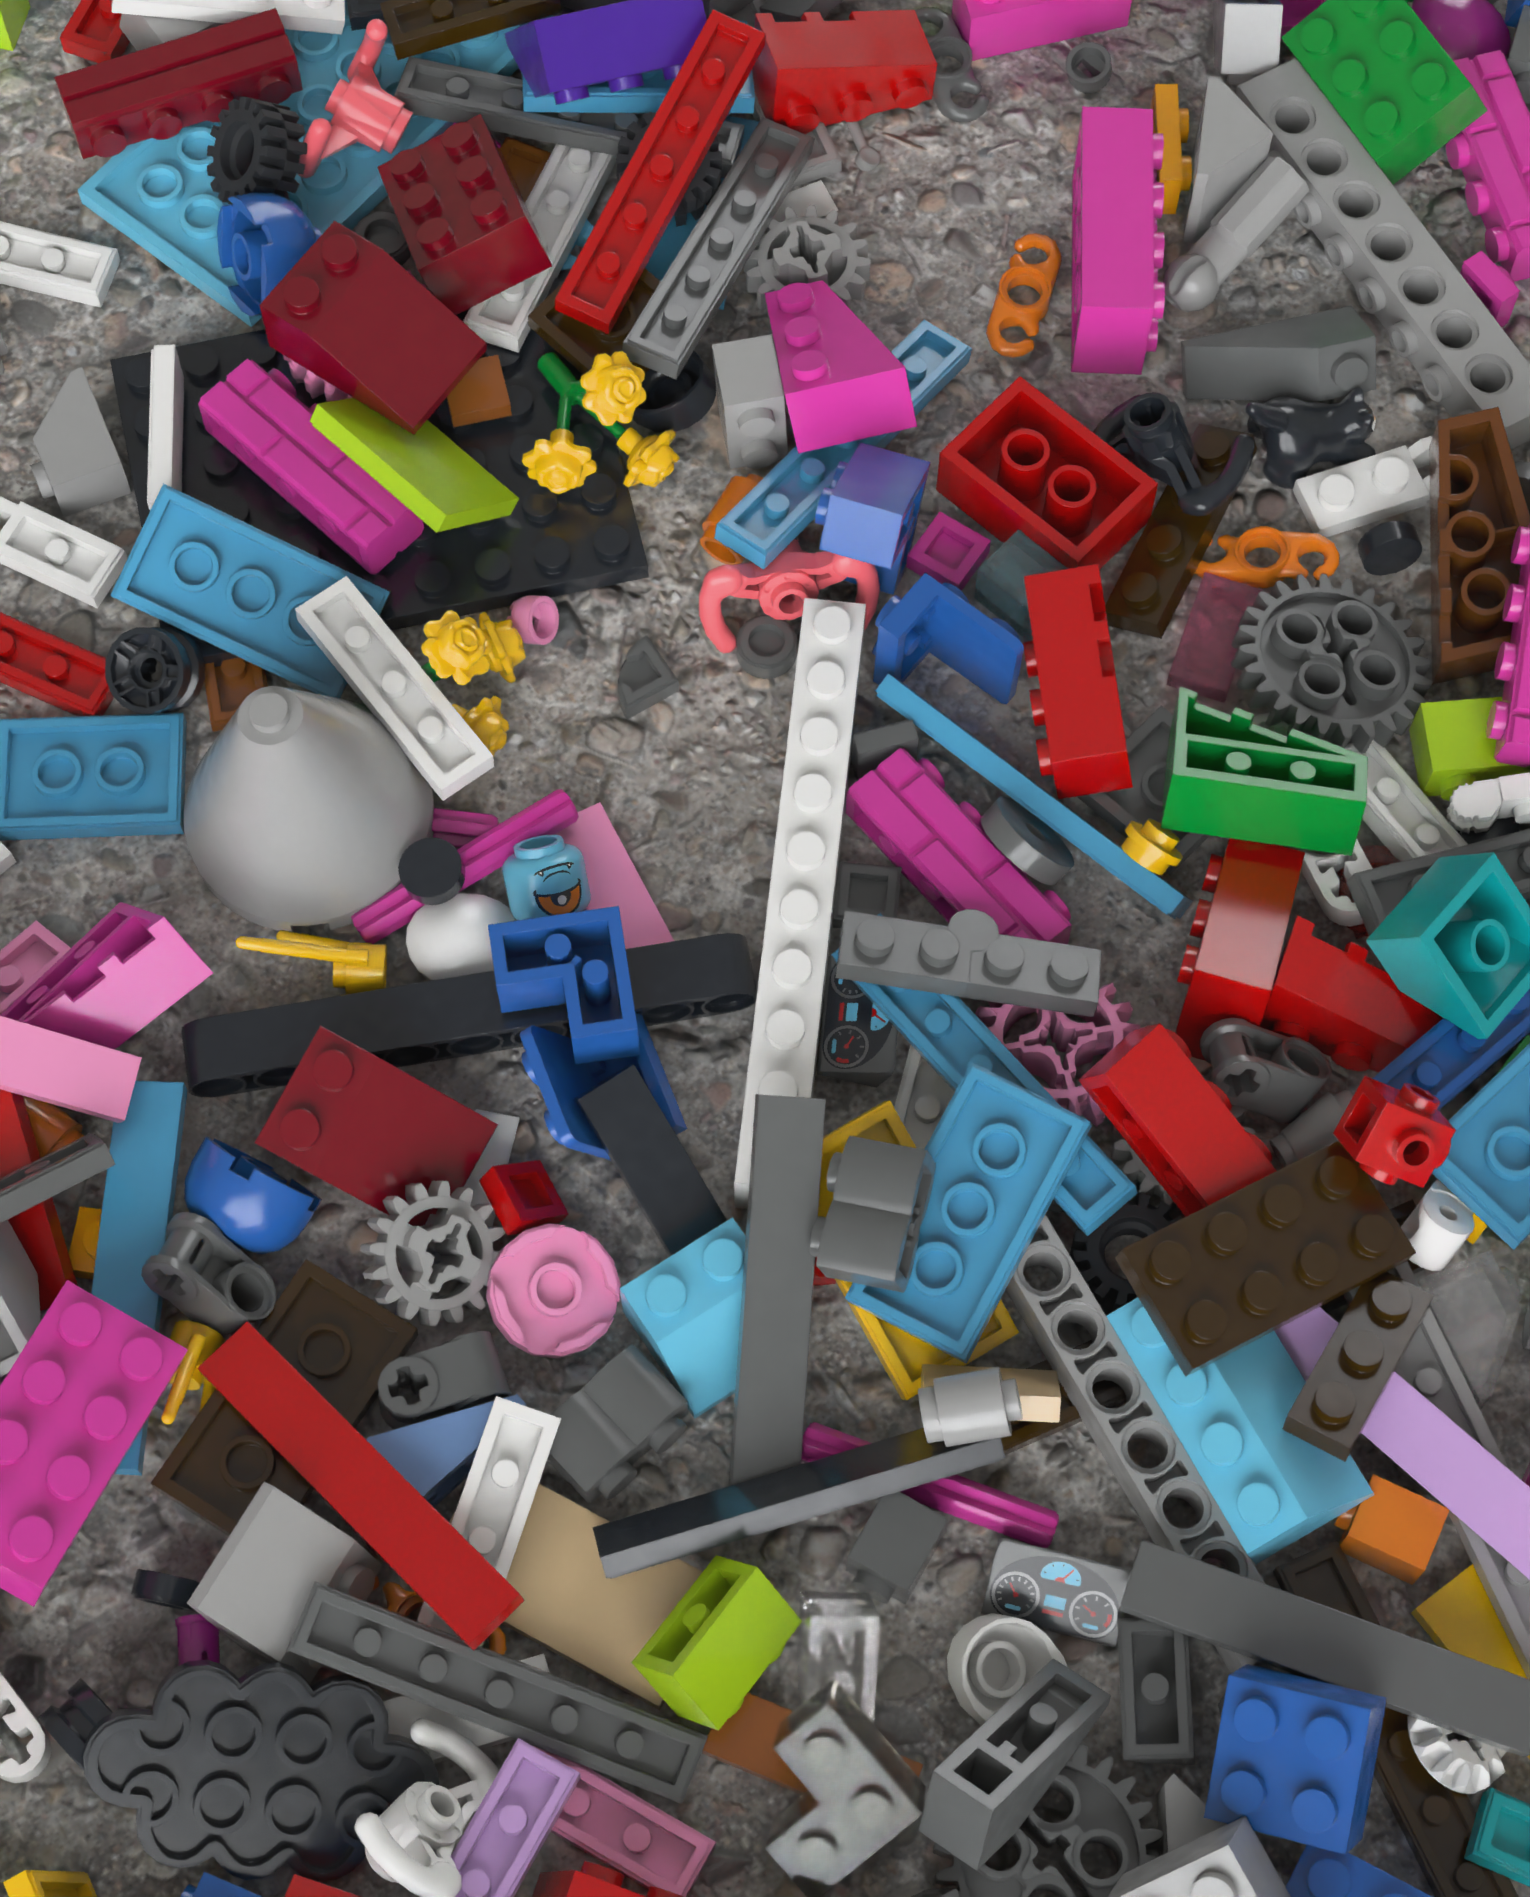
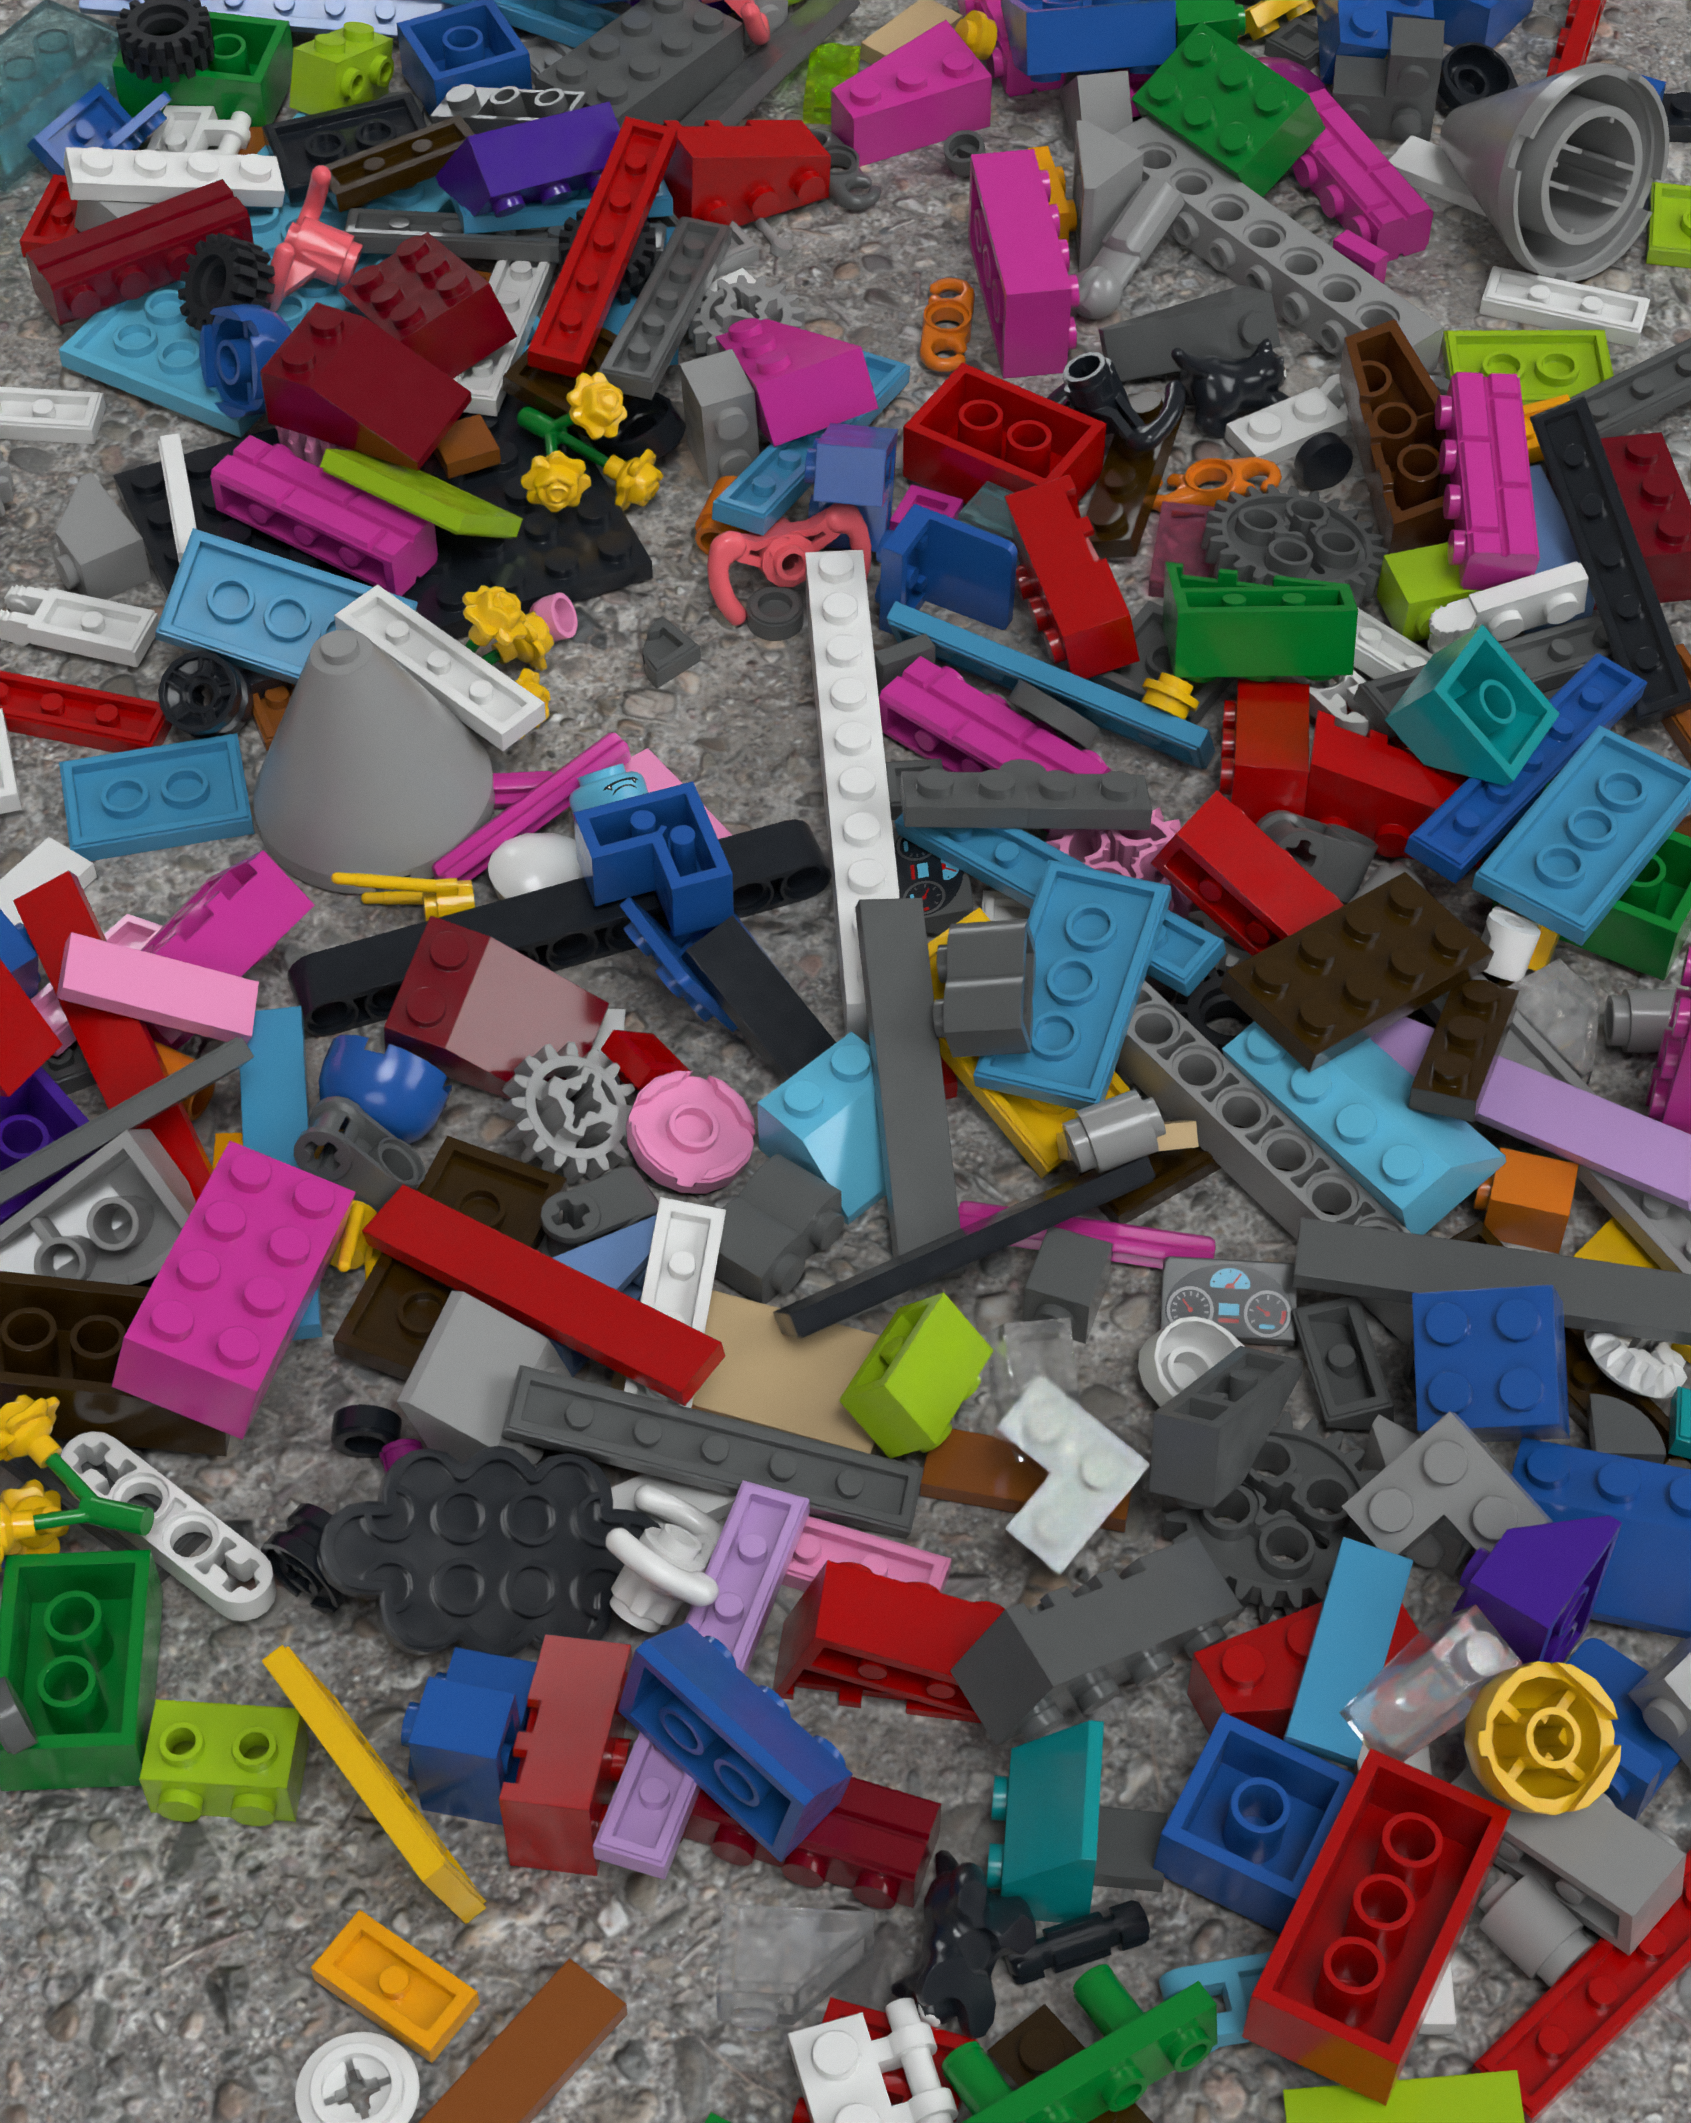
camera: 10 degrees left, 15 degrees down
(431, 871) = (503, 810): black tile -> none
(1395, 1132) = (1451, 849): red brick -> none
(1420, 1831) = (1622, 1430): none -> dark grey tile

